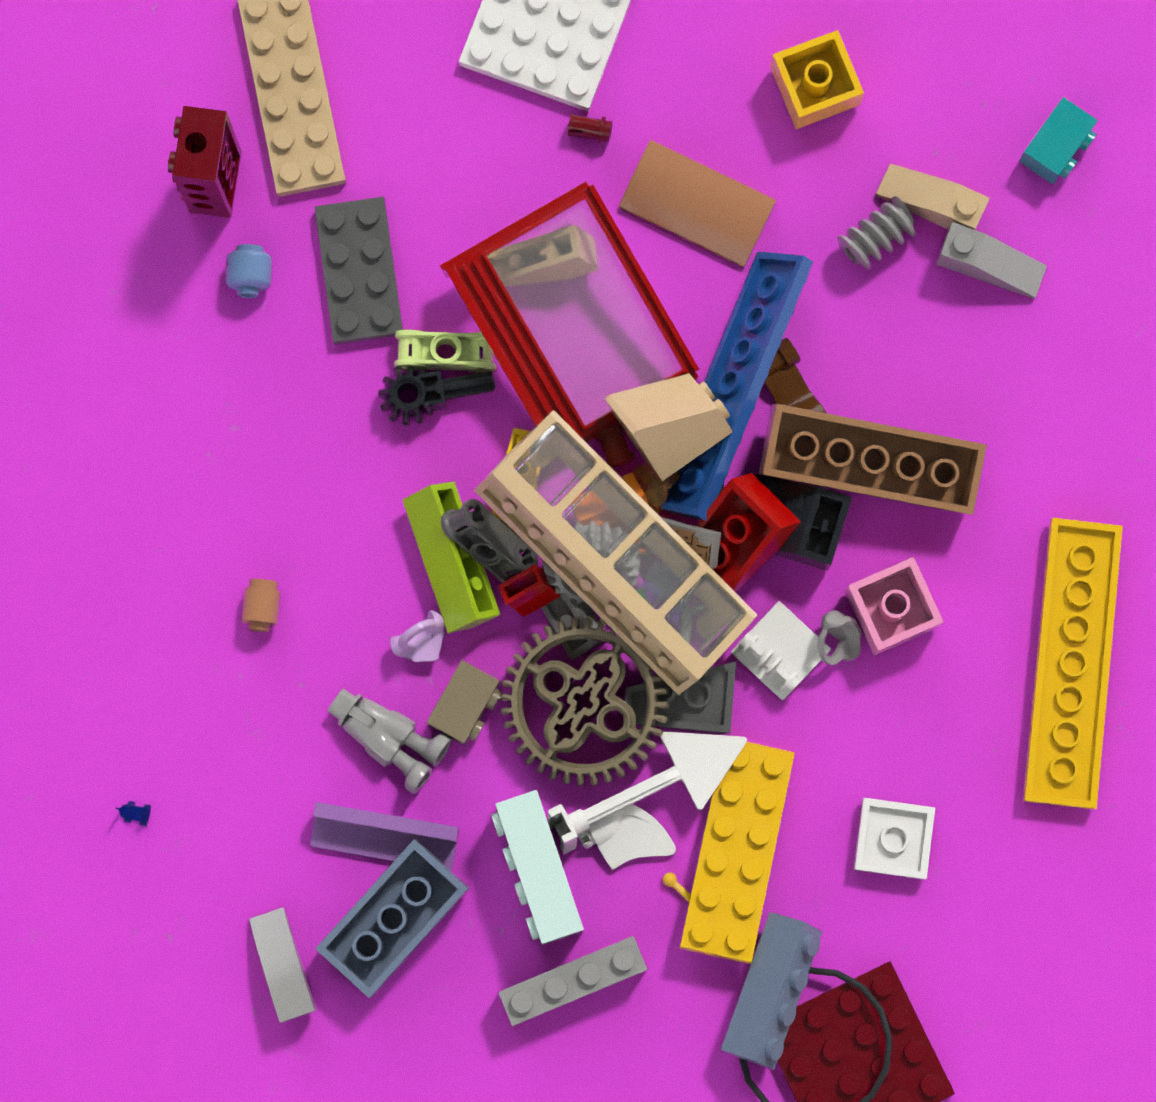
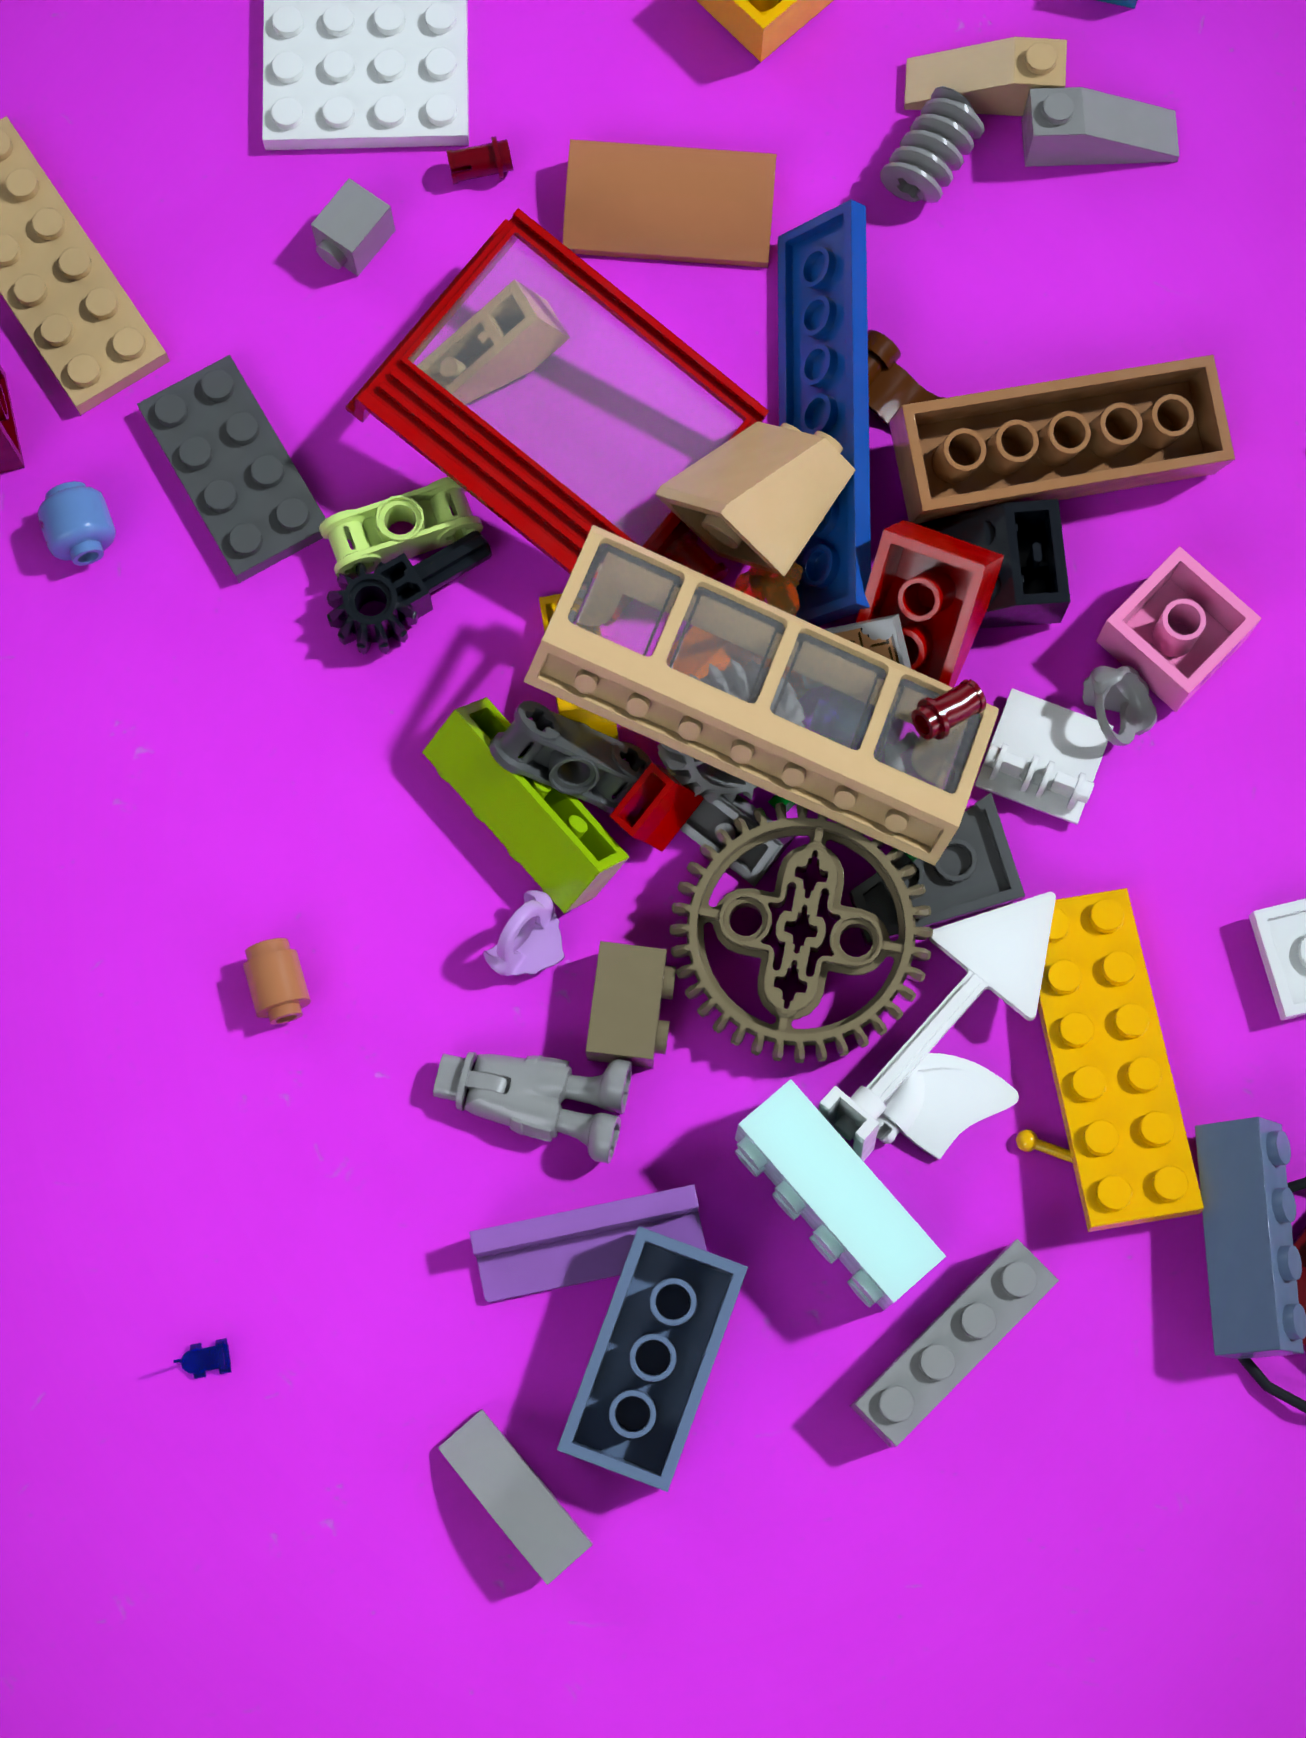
camera: 20 degrees left, 5 degrees down
(491, 143) = (352, 228): none -> light grey brick
(722, 606) = (937, 715): none -> dark red pin

